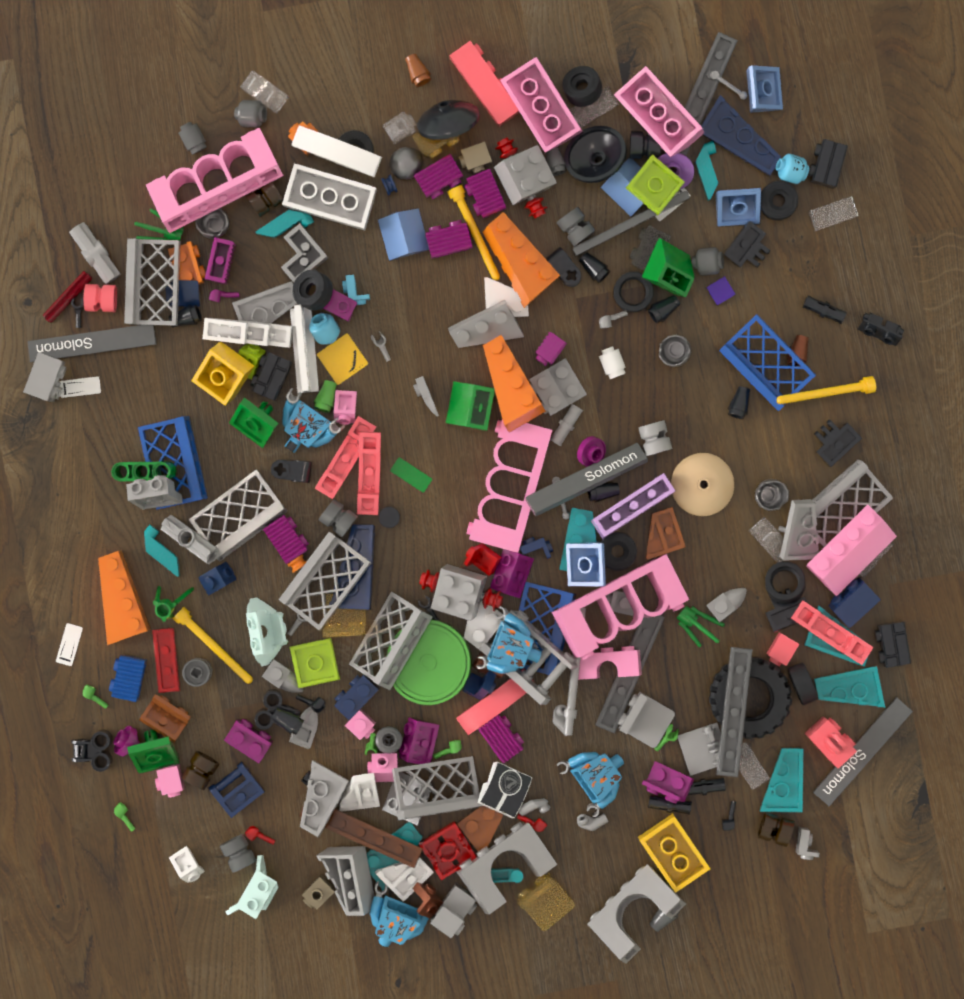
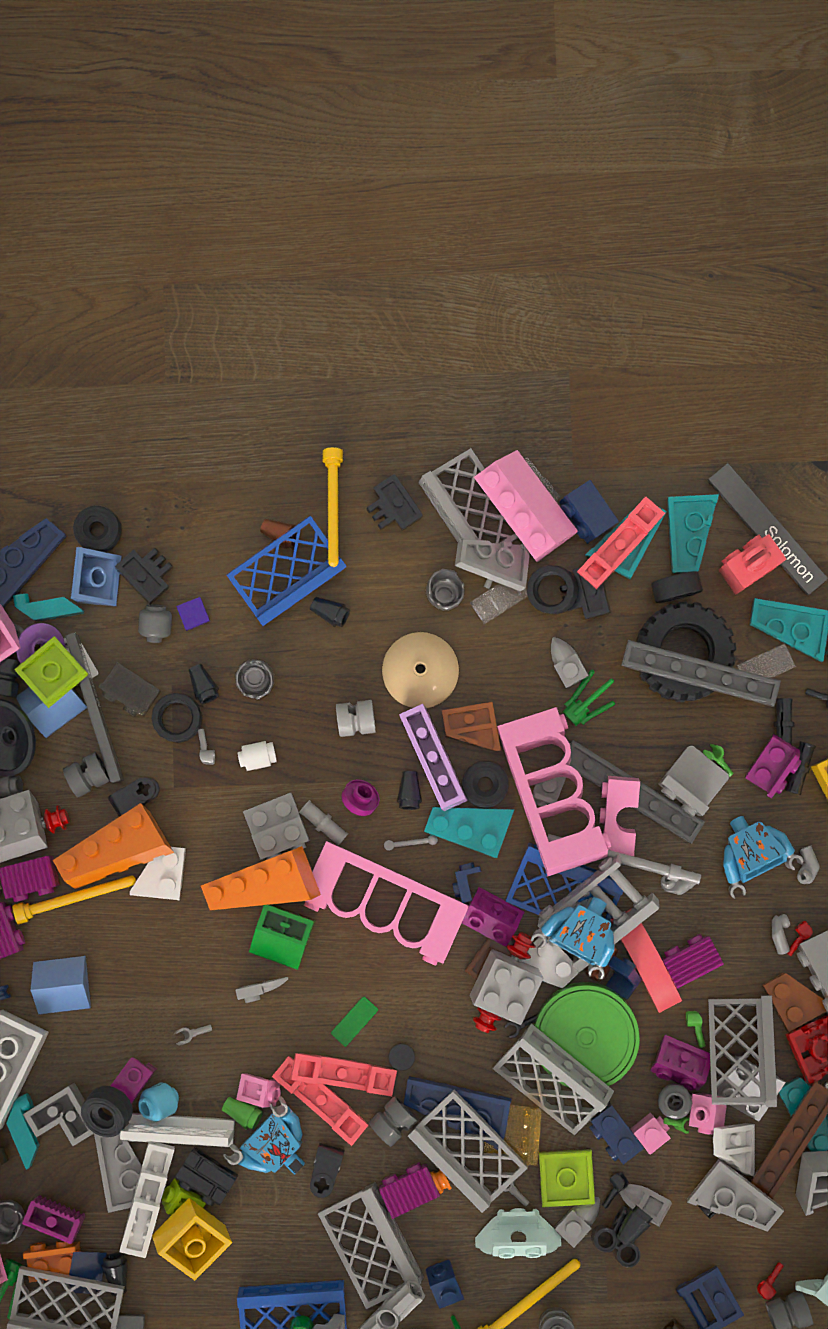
camera: 75 degrees left, 5 degrees down
(215, 295) = (96, 1230): magenta hand -> none
(248, 740) = (650, 1276): magenta bracket -> none
(254, 421) = (258, 1207): green tile -> none
(342, 359) = (200, 1084): yellow sticker -> none
(349, 287) = (113, 1061): medium azure bracket -> none
(449, 239) = (76, 931): magenta brick -> none
(483, 558) = (469, 950): red bracket -> none
(486, 326) = (188, 901): light grey wing -> none
(504, 790) = (755, 967): black slope -> none
(549, 349) = (228, 829): magenta brick -> none
(585, 564) = (495, 825): medium blue slope -> none
(586, 479) = (392, 809): dark grey tile -> none
(595, 268) = (140, 759): black cone -> none
(670, 269) = (156, 670): green slope -> none
(701, 748) = (737, 720): light grey hinge -> none
(782, 650) = (632, 605): coral brick -> none
(792, 168) = (61, 506): medium azure head -> none
(824, 309) = (235, 494): black pin -> none
(828, 163) = (63, 464): black brick -> none
(833, 213) = (124, 467): clear slope -> none
(889, 334) = (264, 442): black hinge -> none
(893, 644) = (645, 473): black brick -> none

